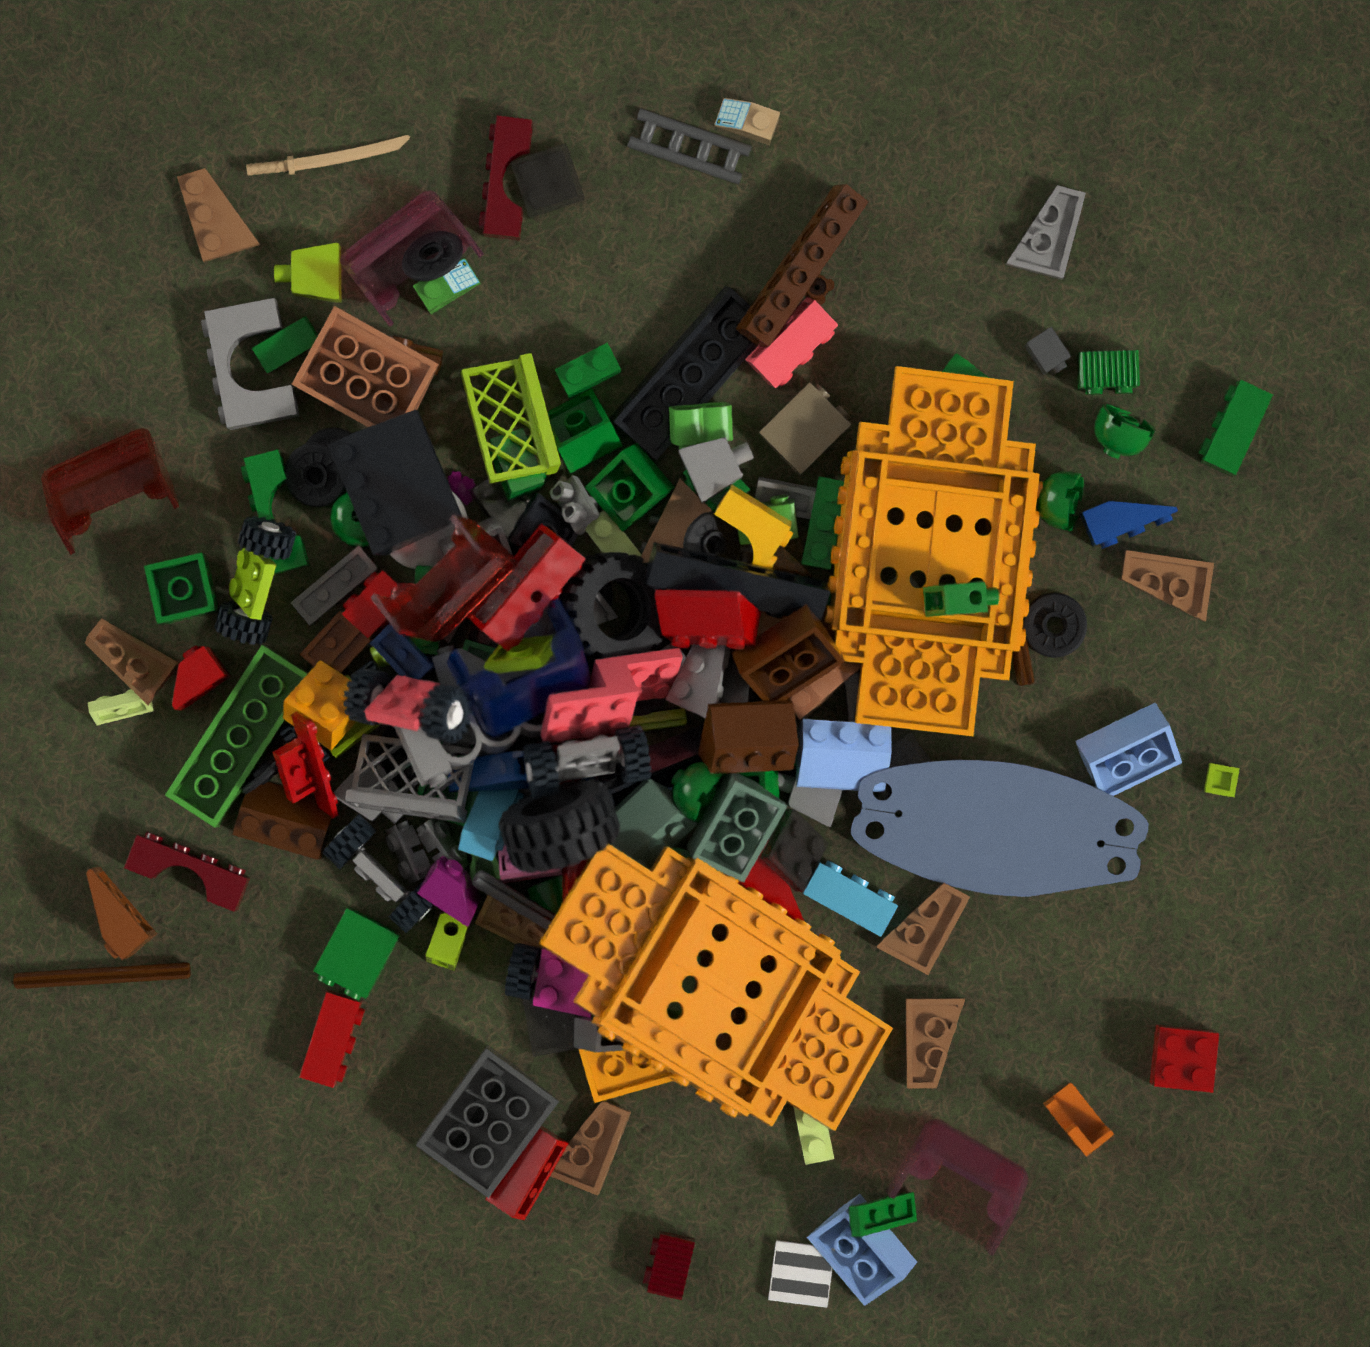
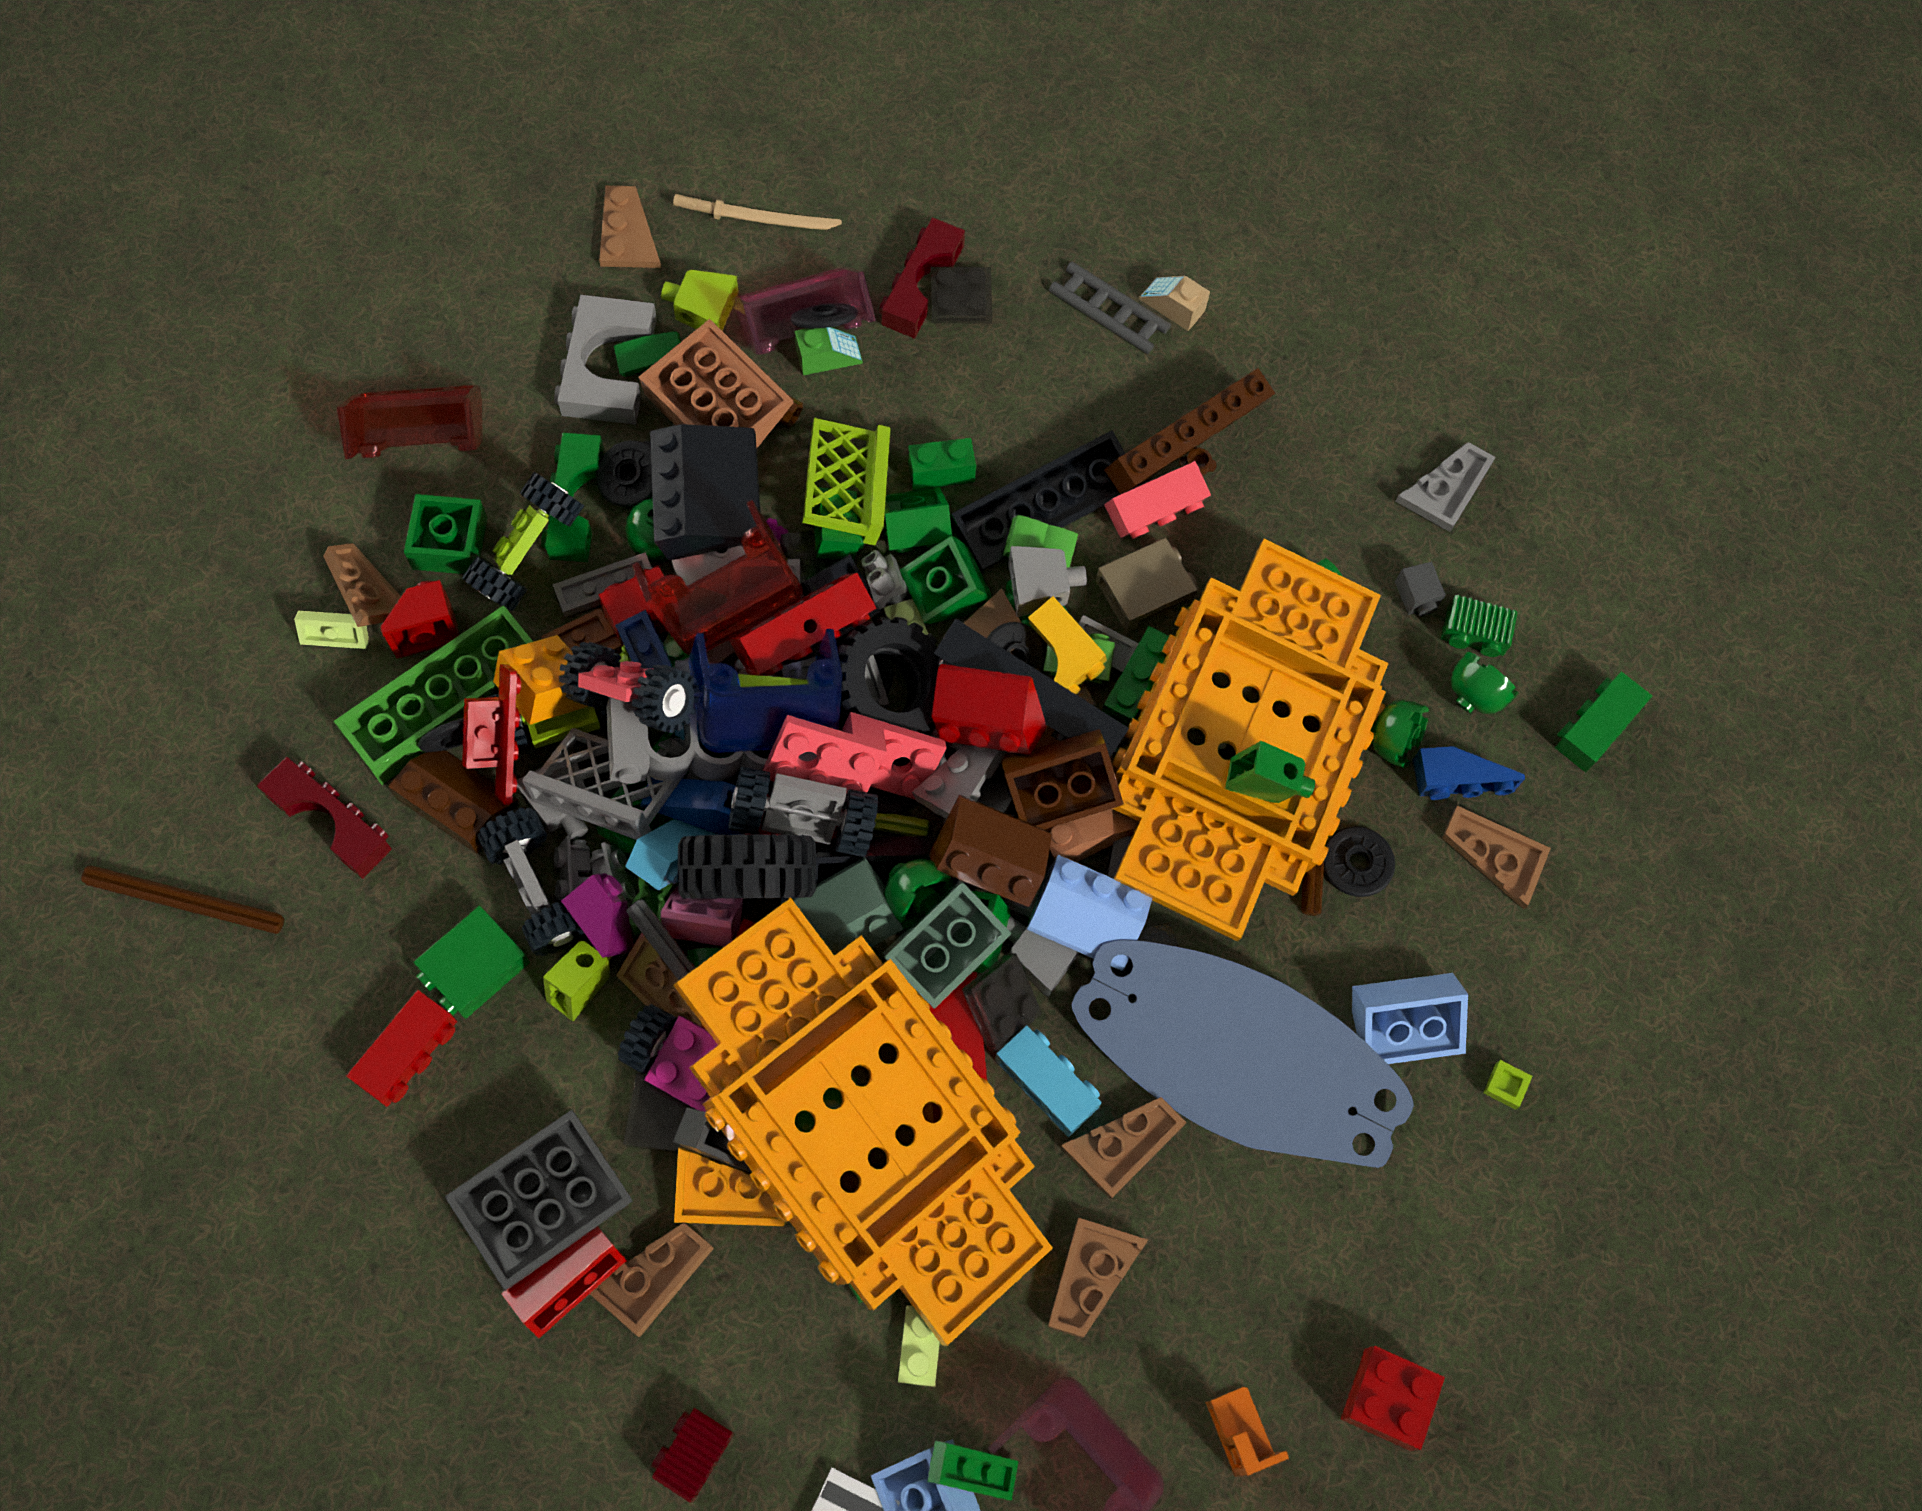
camera: 15 degrees right, 20 degrees down
(118, 919) = (223, 835): dark orange slope -> none

